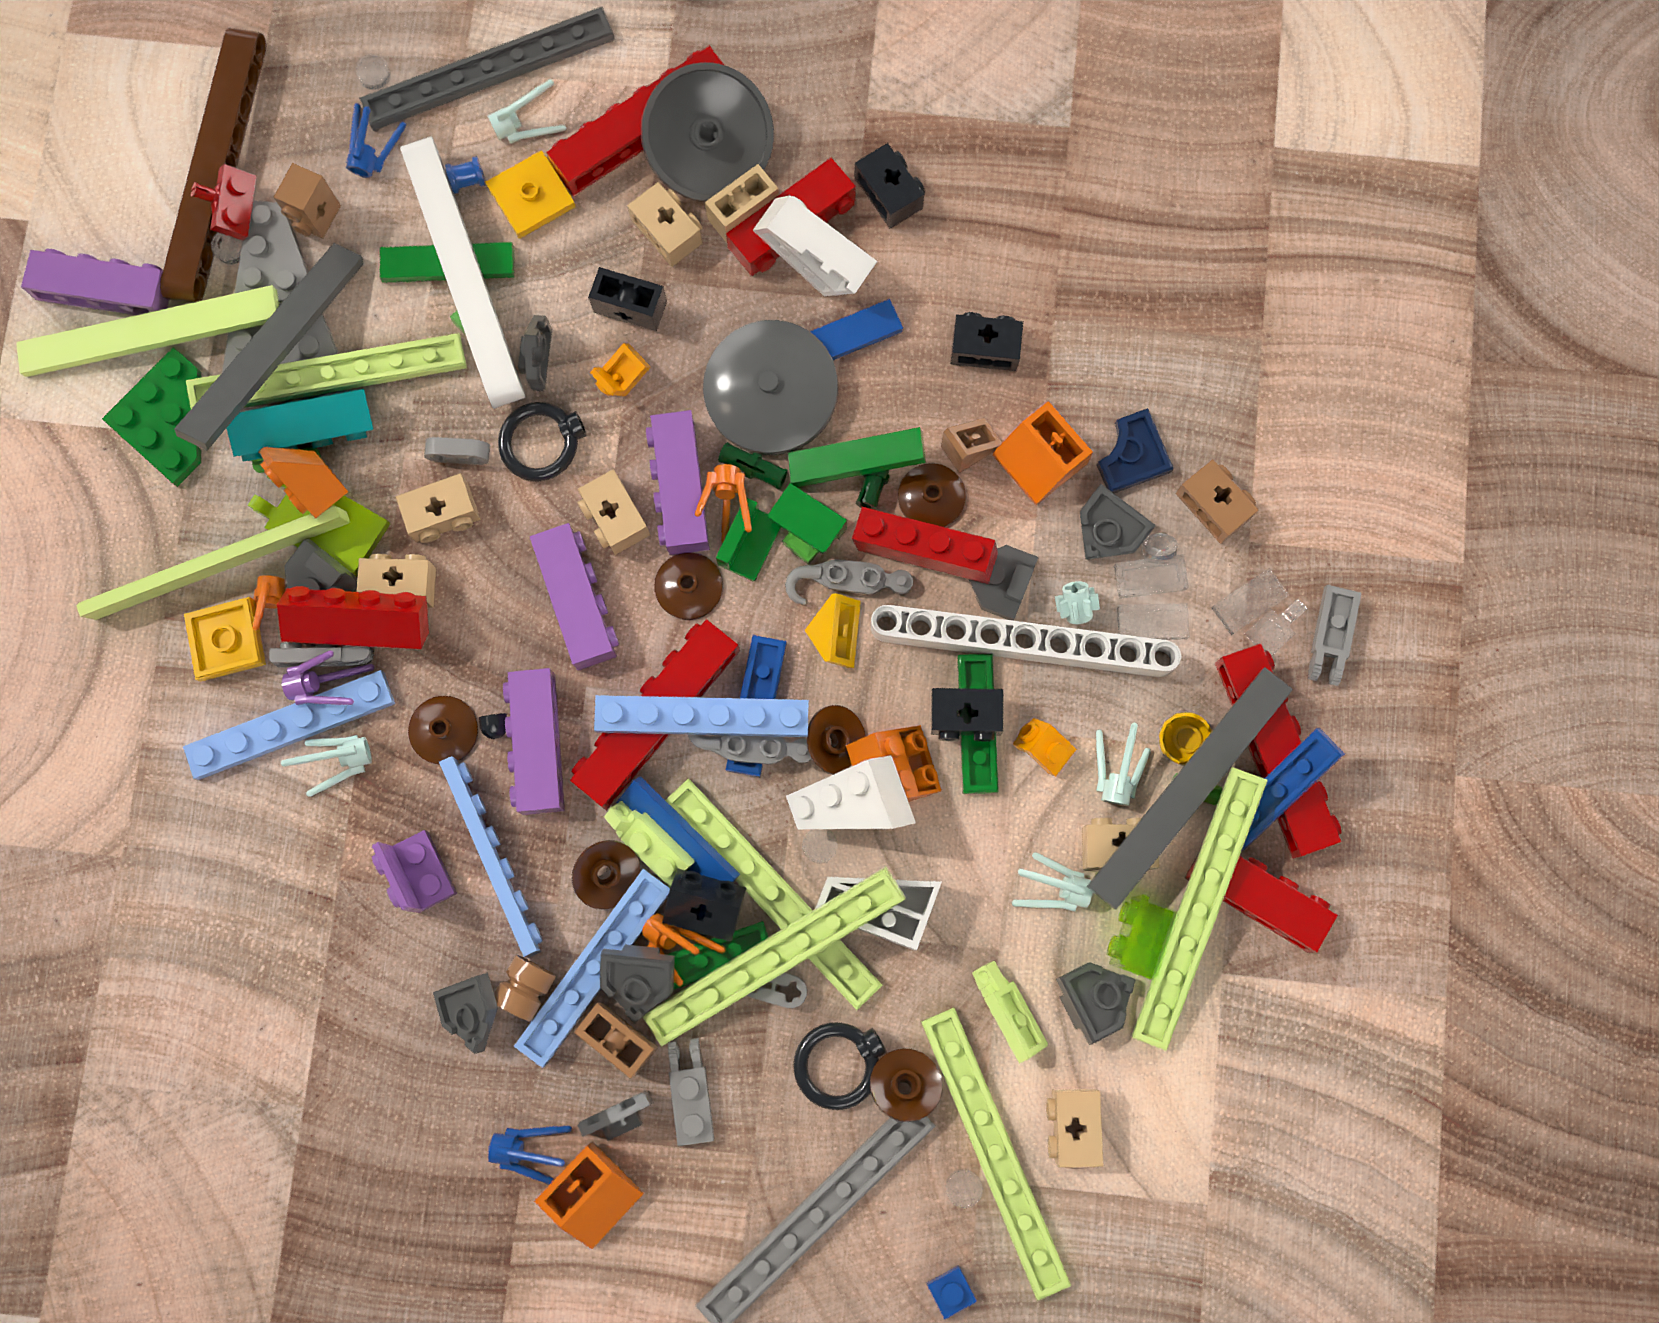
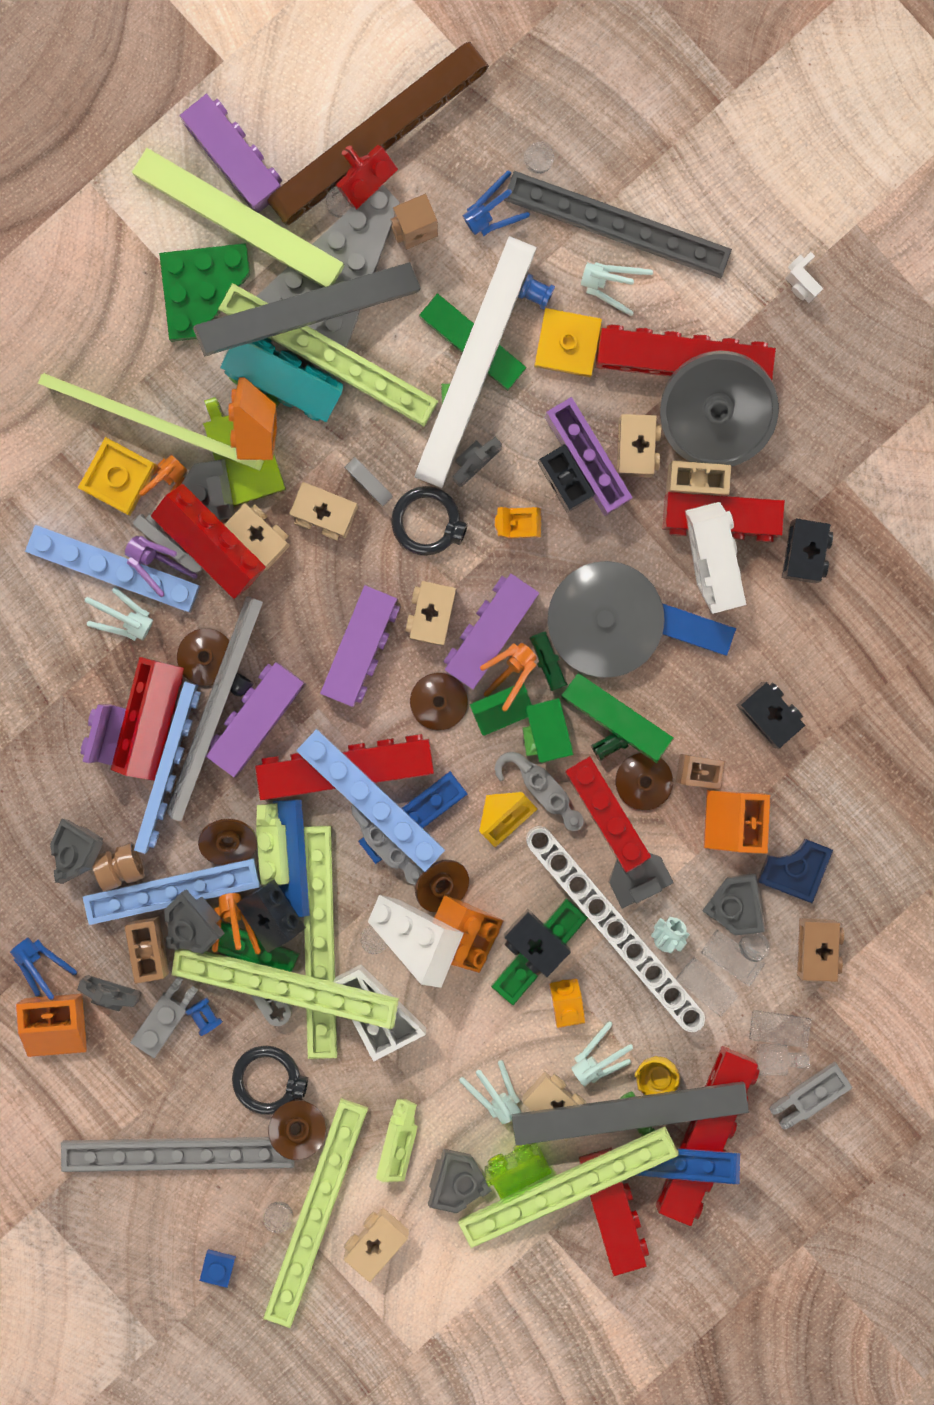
camera: 30 degrees right, 10 degrees up
(433, 826) = (147, 719): none -> red brick
(488, 765) = (214, 708): none -> light grey tile
(588, 250) = (589, 455): none -> medium lavender brick
(715, 1058) = (203, 1006): none -> blue bush

